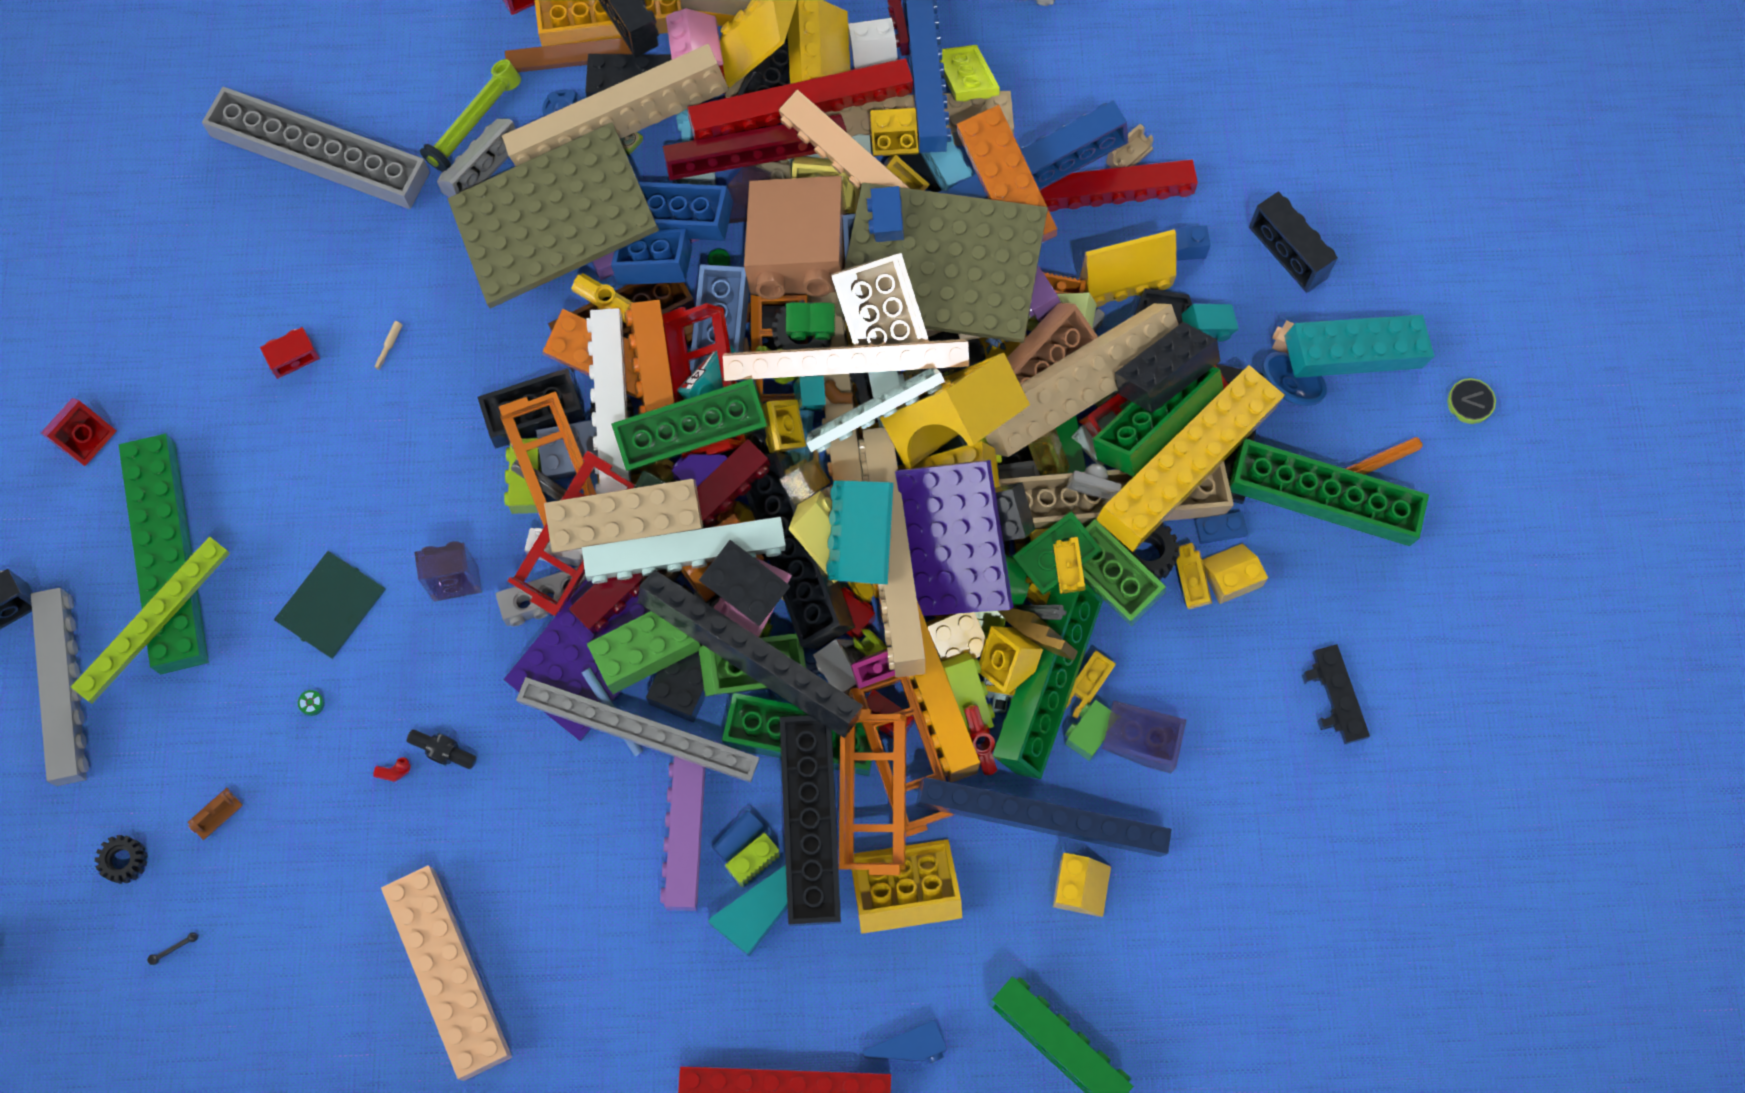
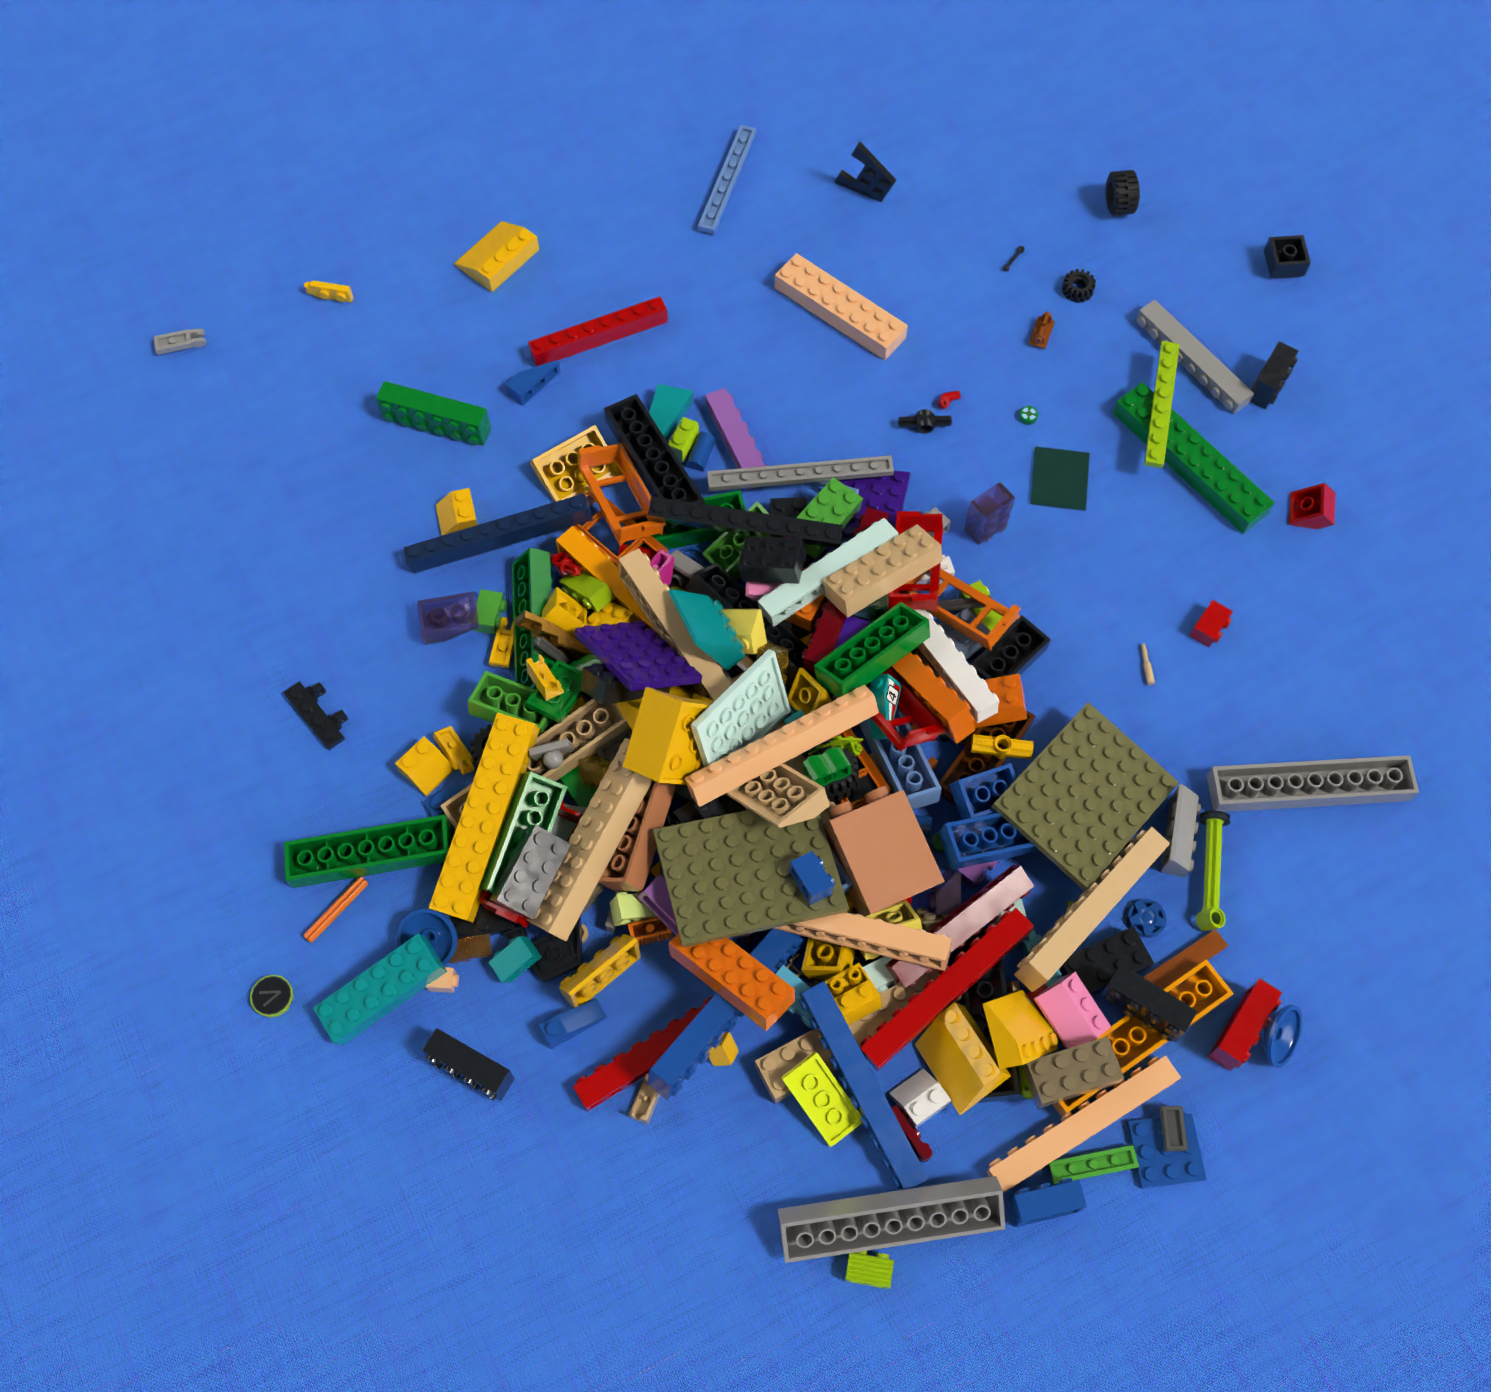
camera: 155 degrees right, 5 degrees down
(1242, 355) = (472, 947): none -> clear orange slope

